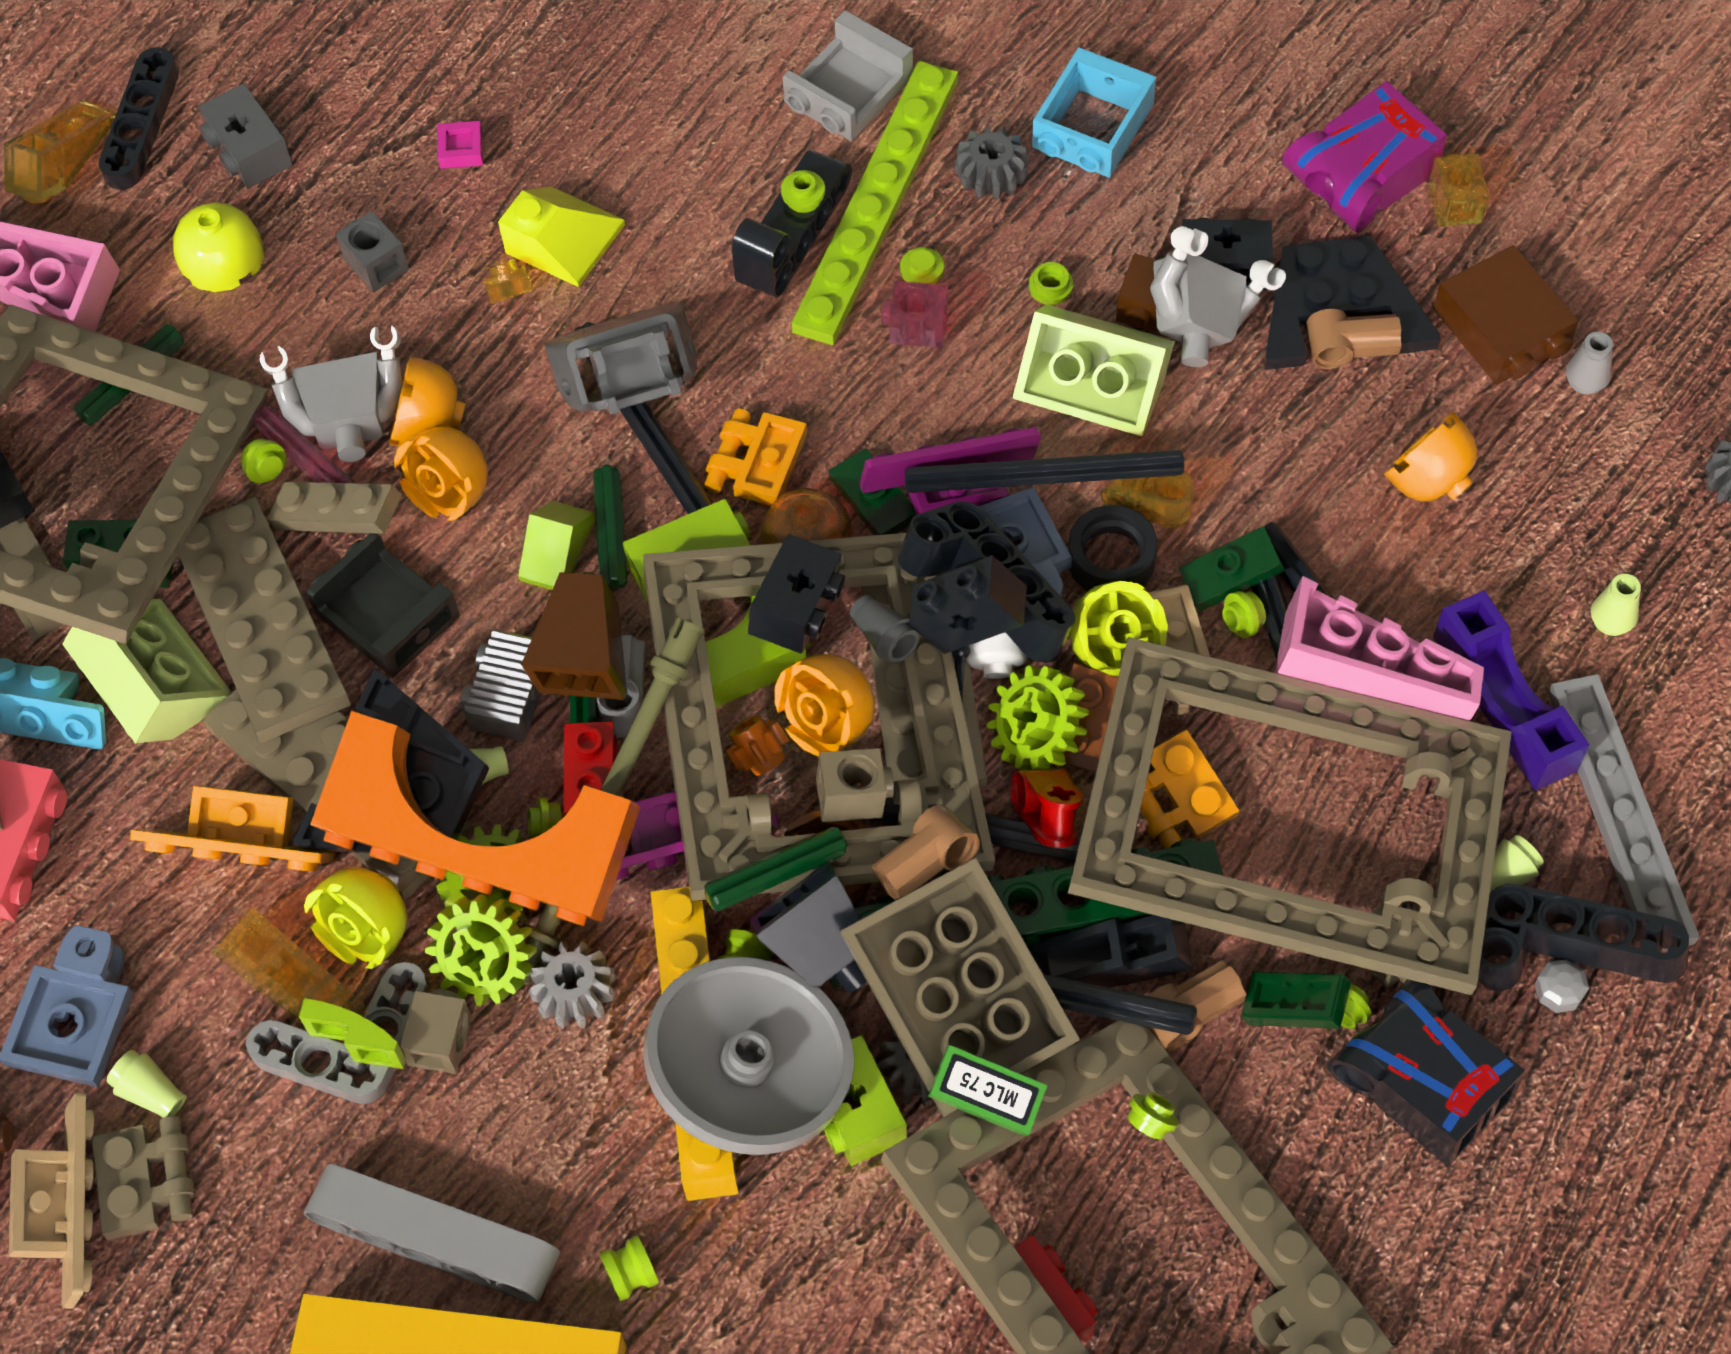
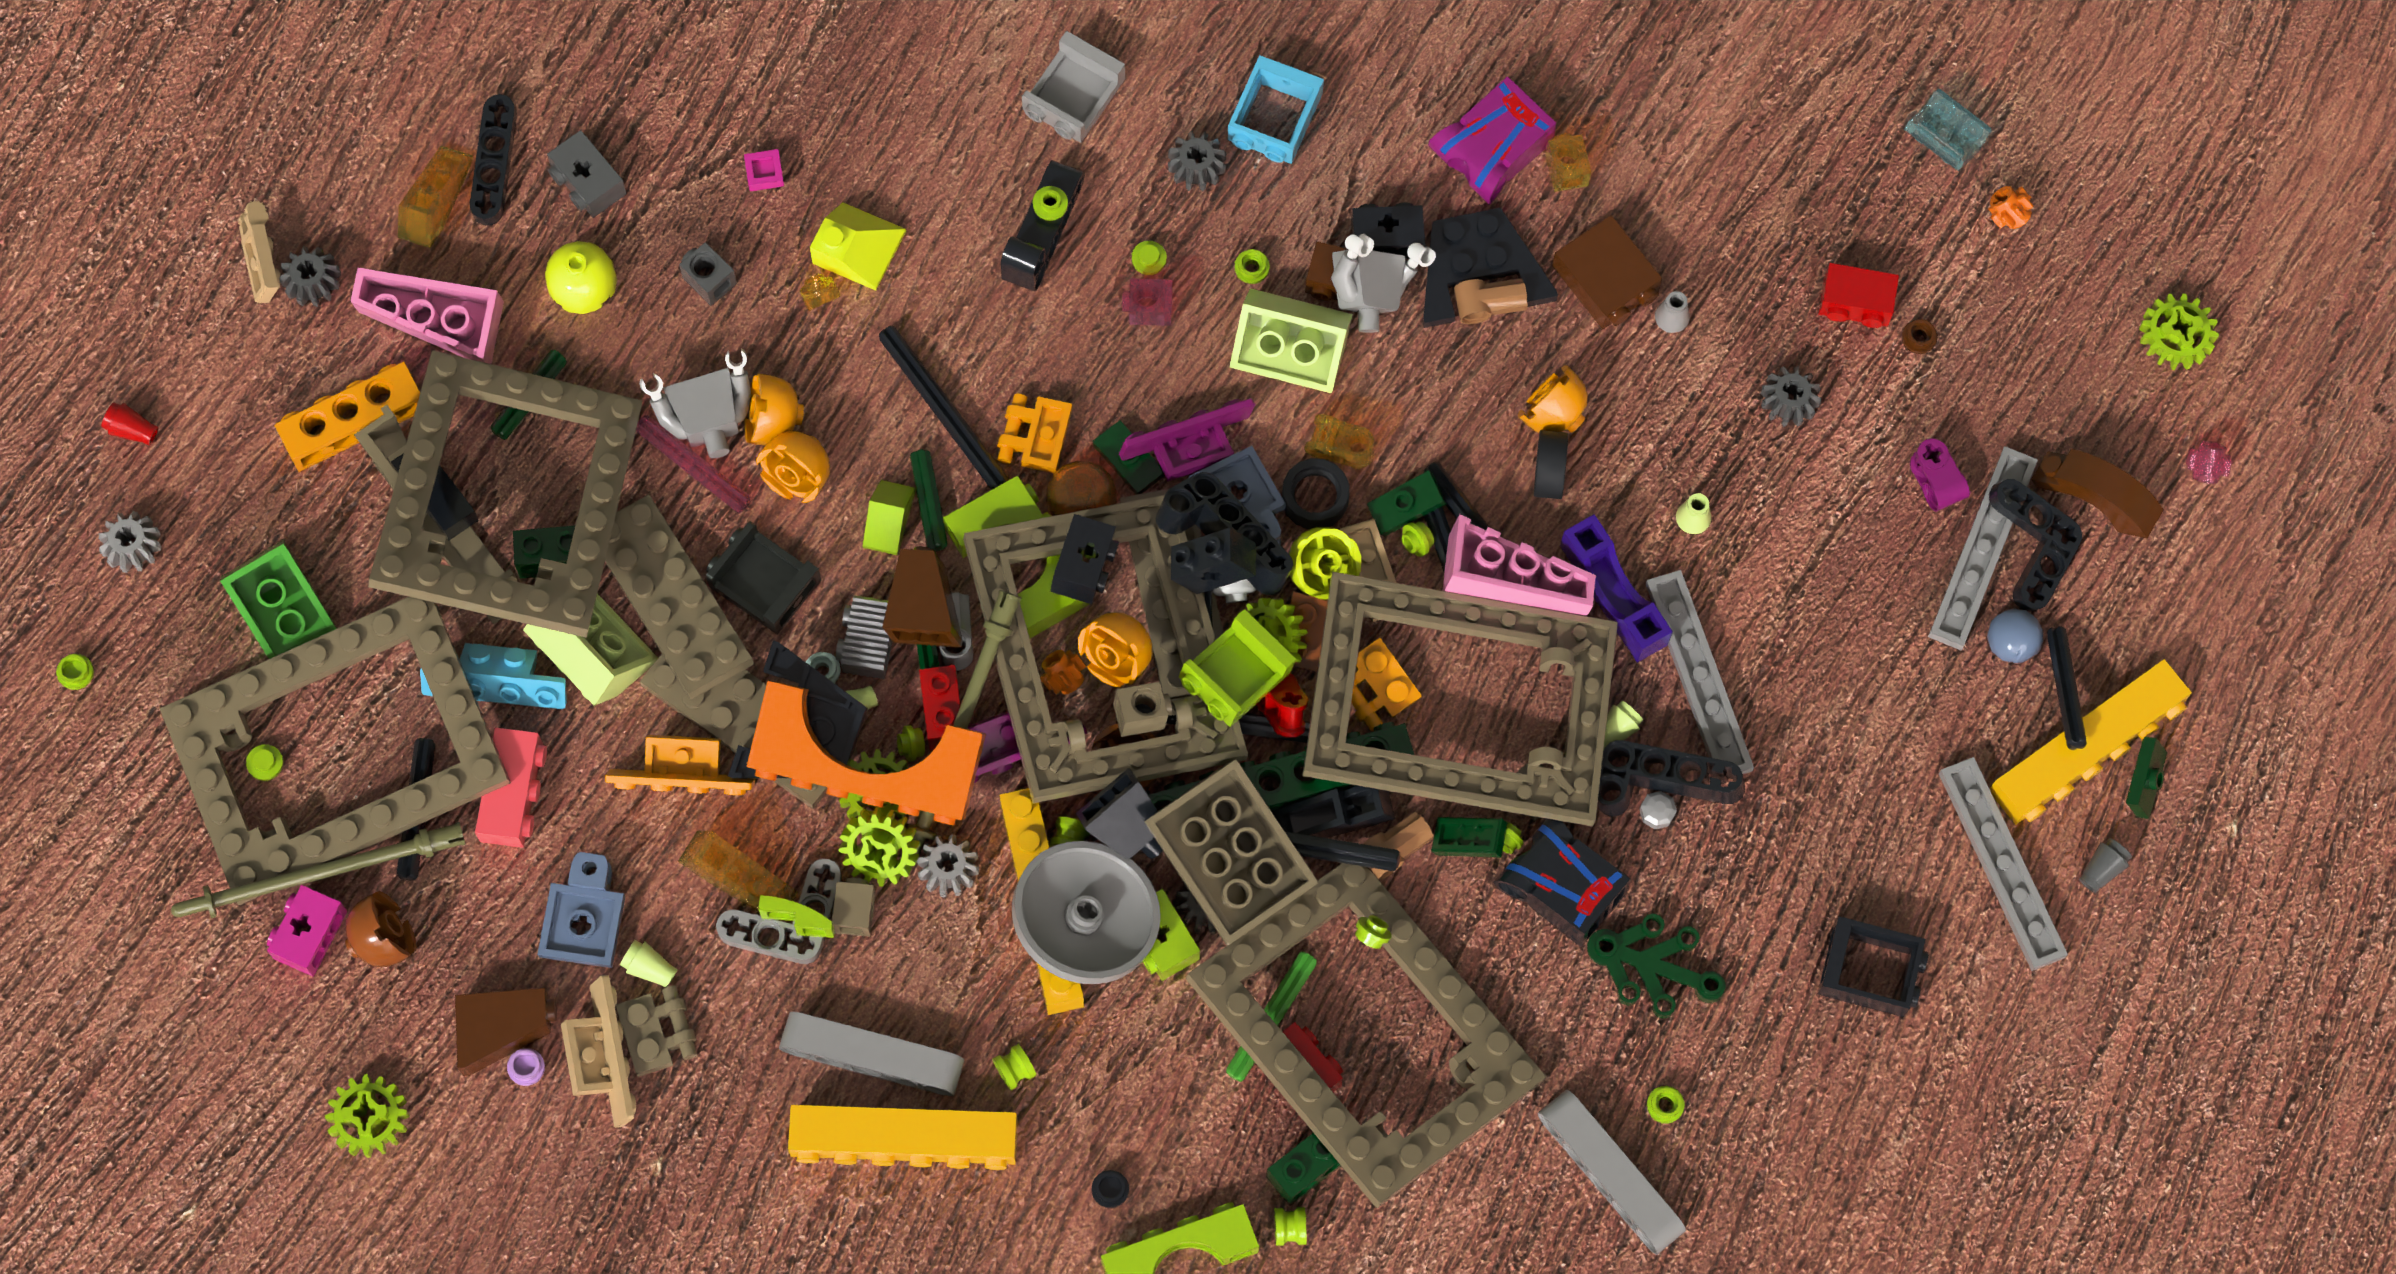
camera: 10 degrees left, 10 degrees up
(263, 460) = (650, 463): lime plate -> none
(334, 507) = (714, 502): dark tan plate -> none
(358, 915) = (785, 827): neon yellow cylinder -> none
(449, 711) = (826, 659): none -> light aqua plate
(626, 357) = (927, 359): dark grey piece -> none
(775, 868) = (1092, 777): dark green axle -> none
(874, 204) = (1106, 199): lime plate -> none
(884, 629) = (1151, 581): dark grey cone -> none
(937, 843) = (1205, 748): medium nougat piece -> none
(987, 1090) = (1257, 925): tile -> none
(990, 748) = (1237, 669): none -> lime panel
(1009, 1216) = (1276, 1008): none -> bright green axle
(1044, 471) = (1259, 437): black axle -> none
(1426, 531) = (1551, 464): none -> black tyre
(1548, 1197) = (1650, 964): none -> dark green plant

